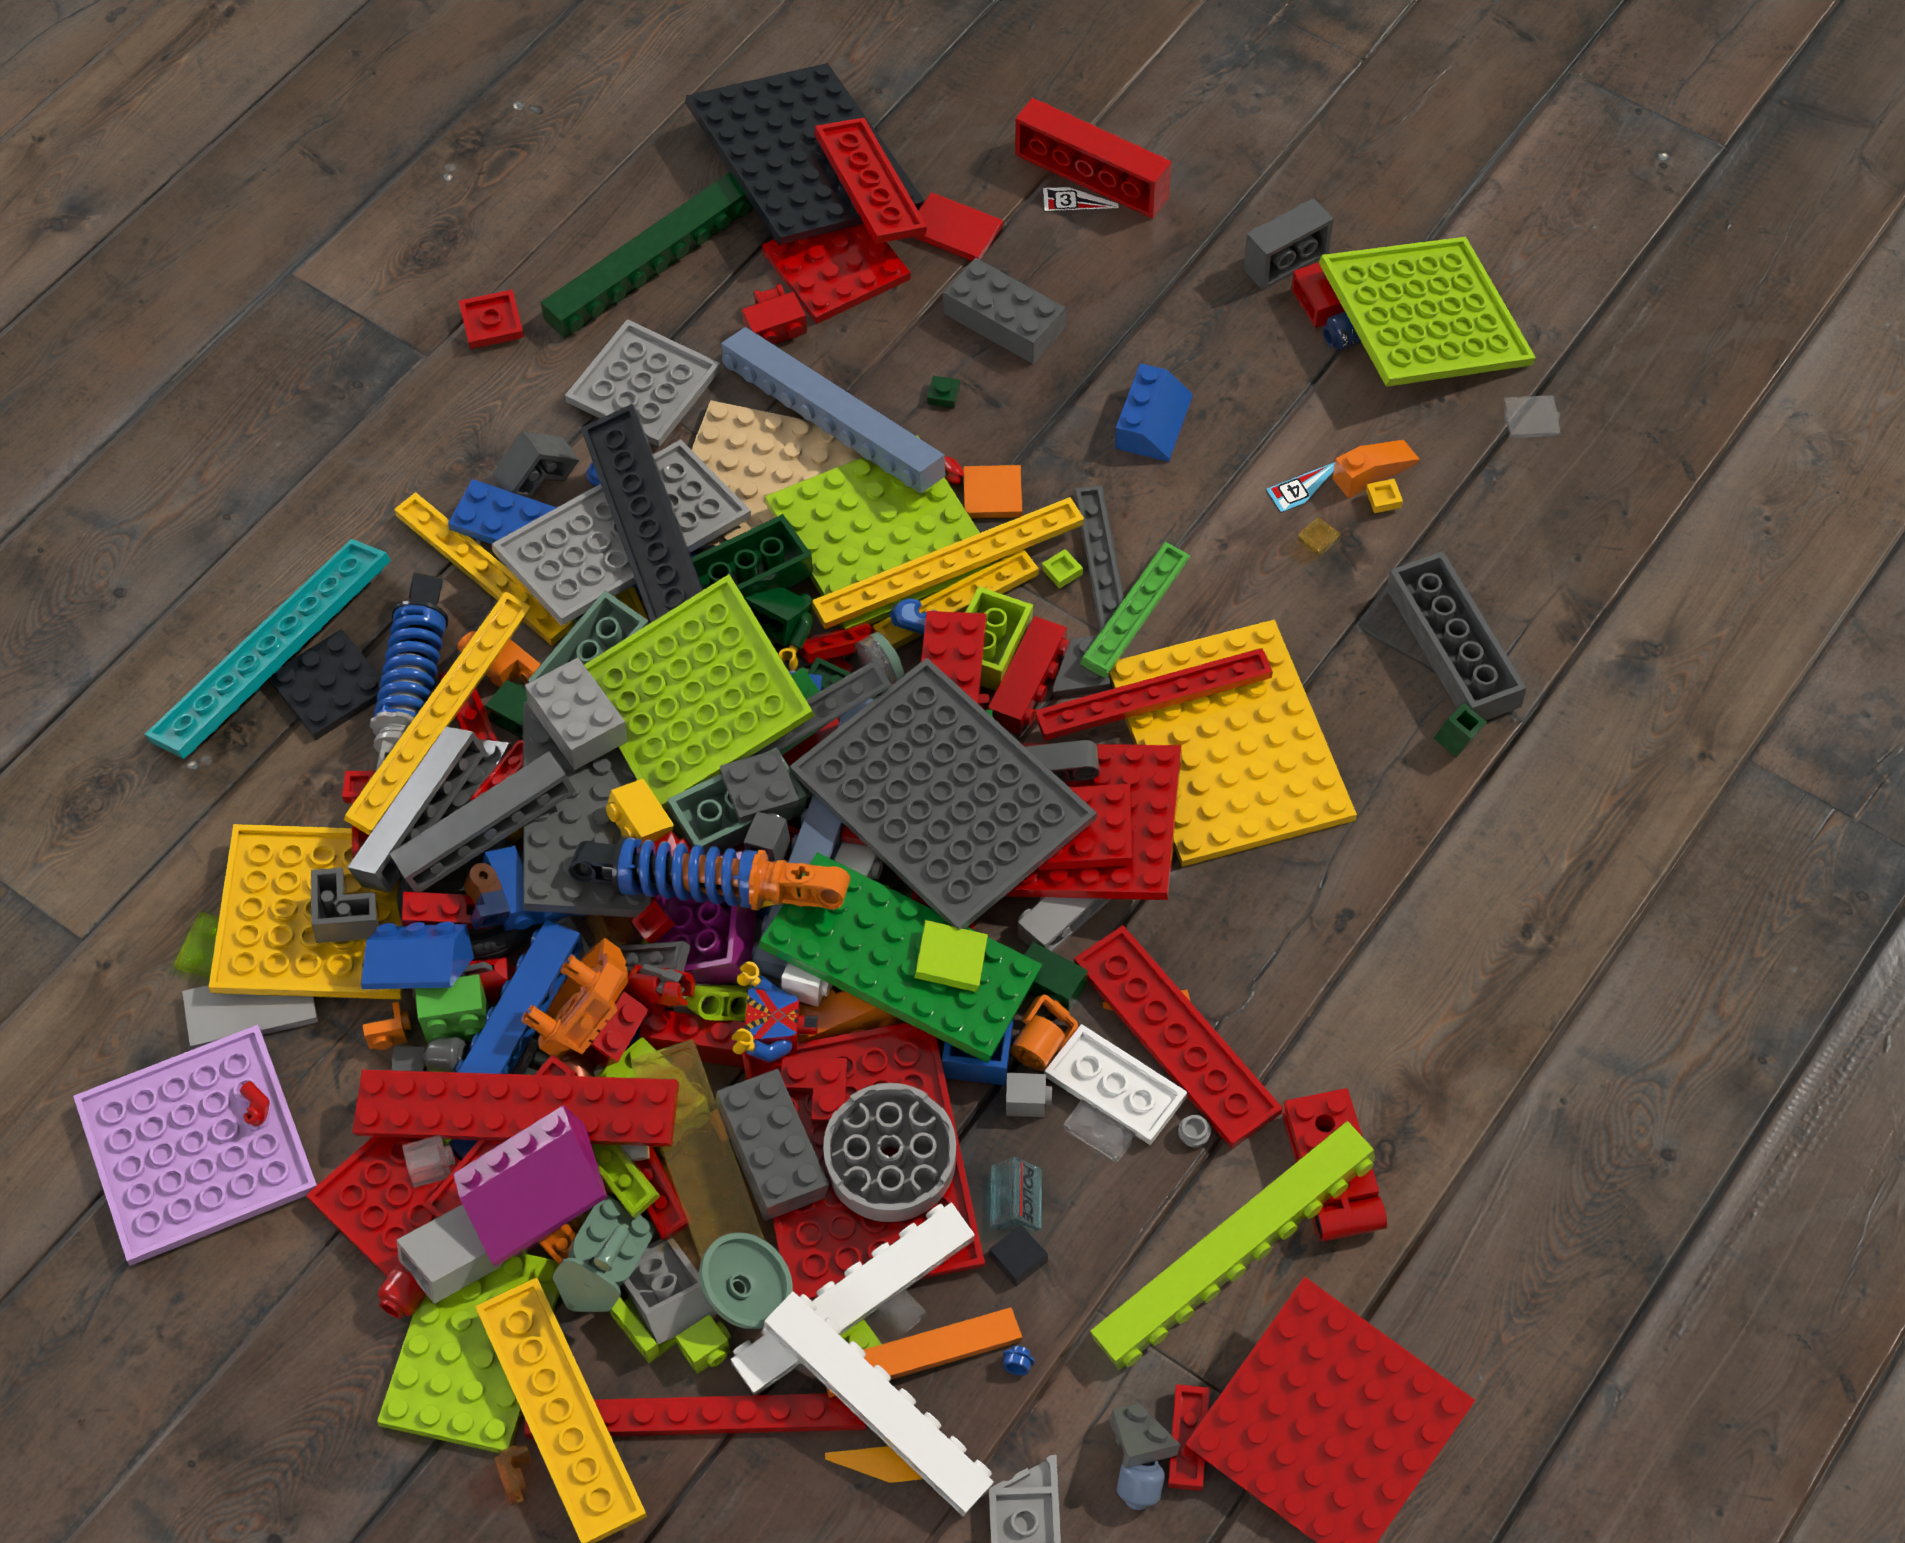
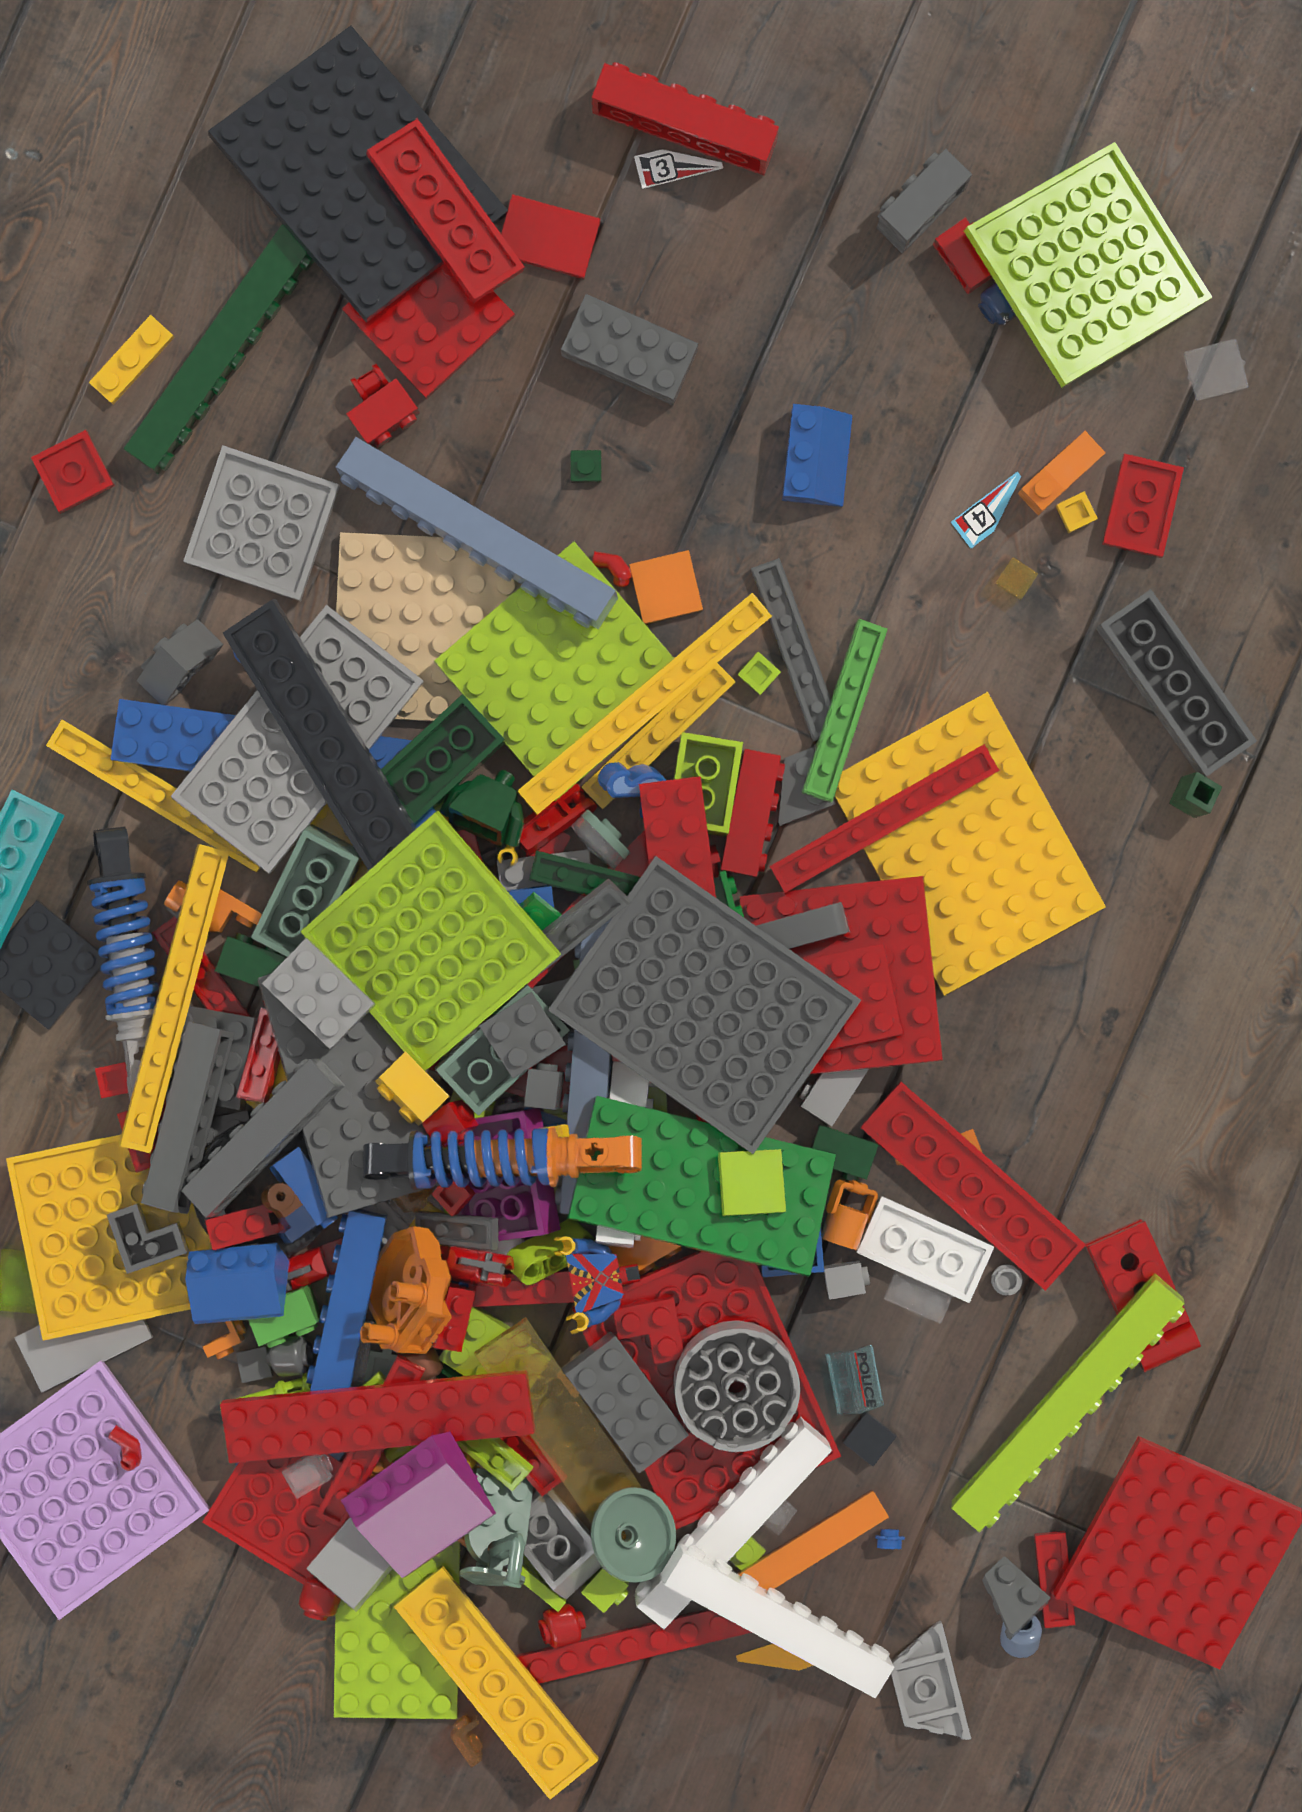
camera: 15 degrees left, 30 degrees up
(569, 253) = (131, 359): none -> yellow plate
(646, 1375) = (561, 1627): none -> red head
(1447, 501) = (1142, 505): none -> red plate

